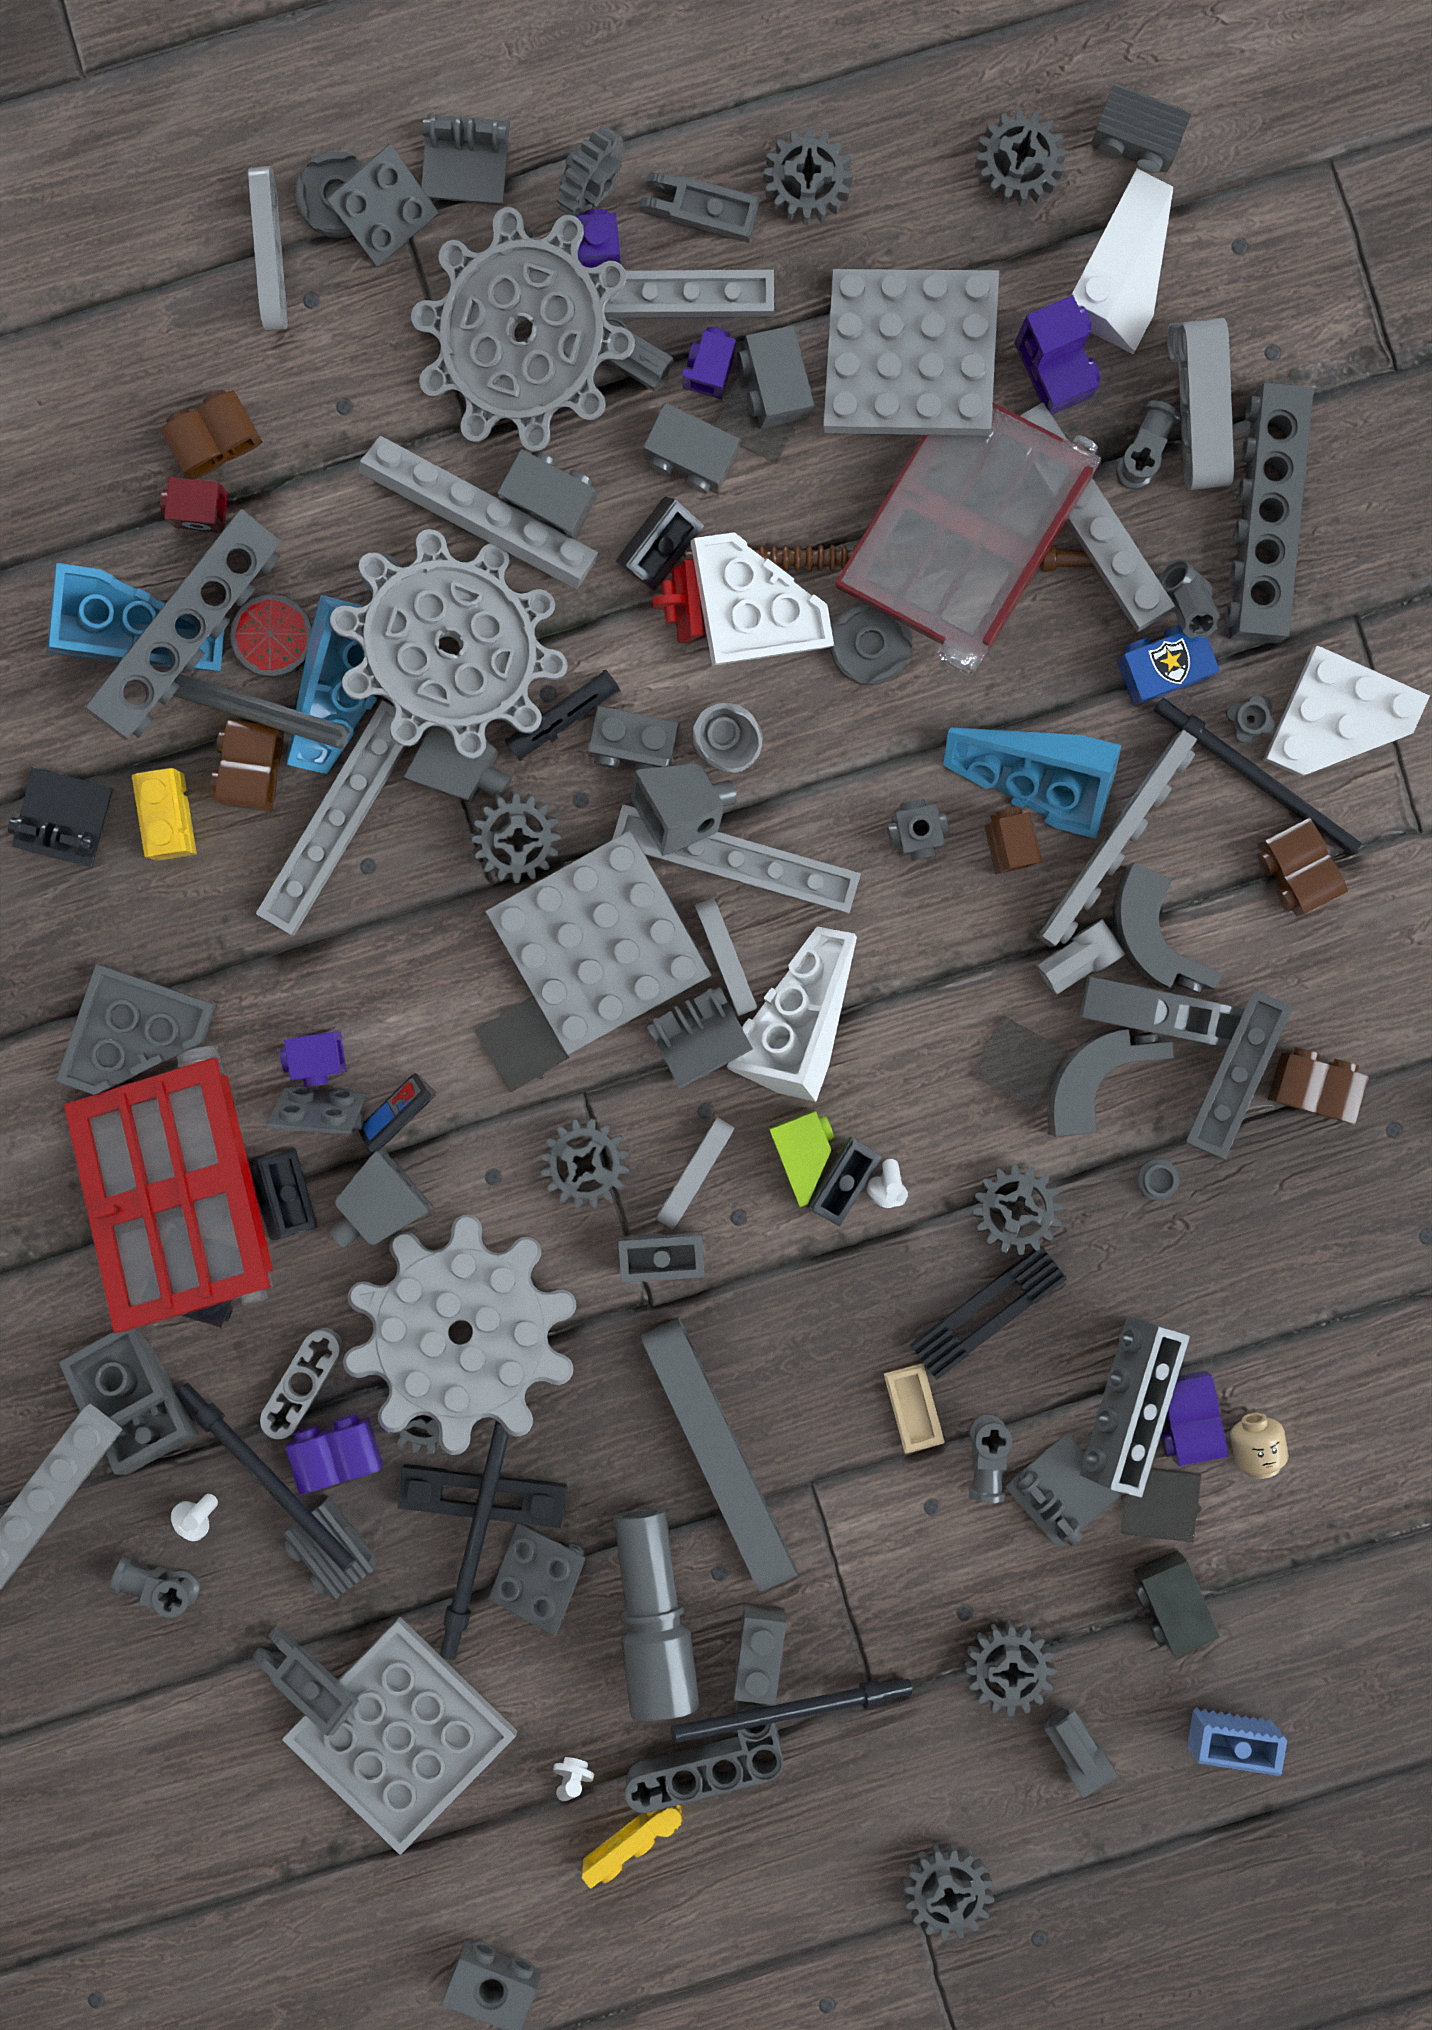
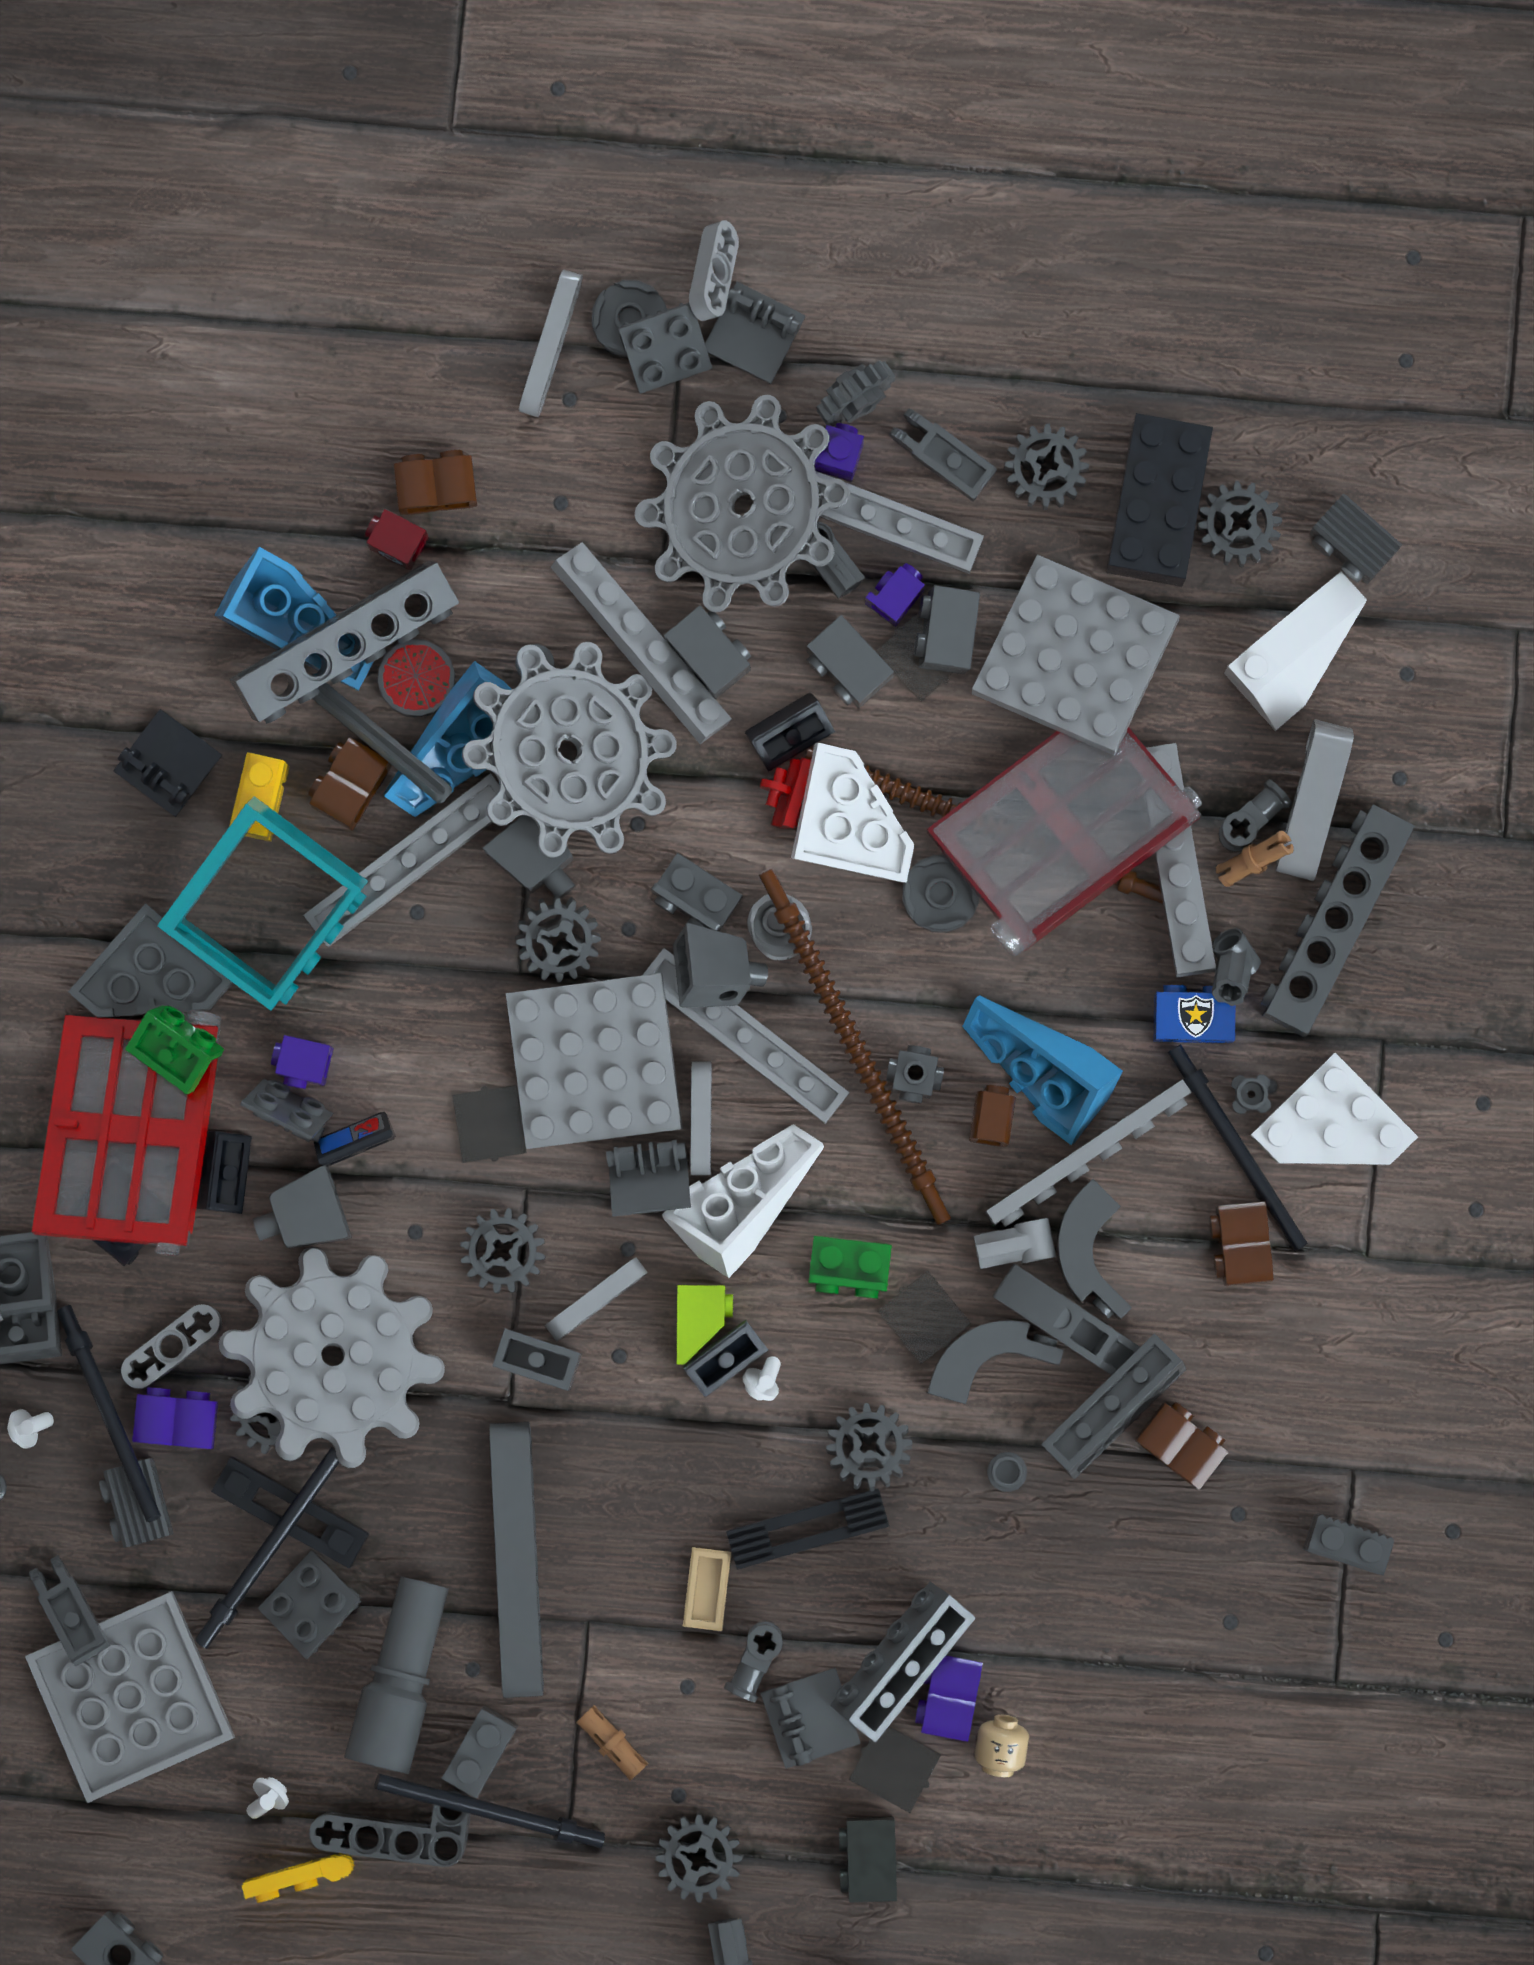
camera: 25 degrees right, 5 degrees down
(179, 1096) = (174, 1047): none -> green bracket
(187, 988) = (226, 962): none -> teal window
(399, 107) = (717, 249): none -> light grey beam
(564, 714) = (645, 848): black pin -> none
(732, 721) = (786, 914): none -> reddish brown hose
(882, 1591) = (612, 1742): none -> medium nougat pin
(927, 1042) = (849, 1265): none -> green bracket
(933, 164) = (1159, 500): none -> black brick
(1055, 357) = (1201, 710): dark purple brick -> none
(1168, 484) = (1254, 858): none -> medium nougat pin

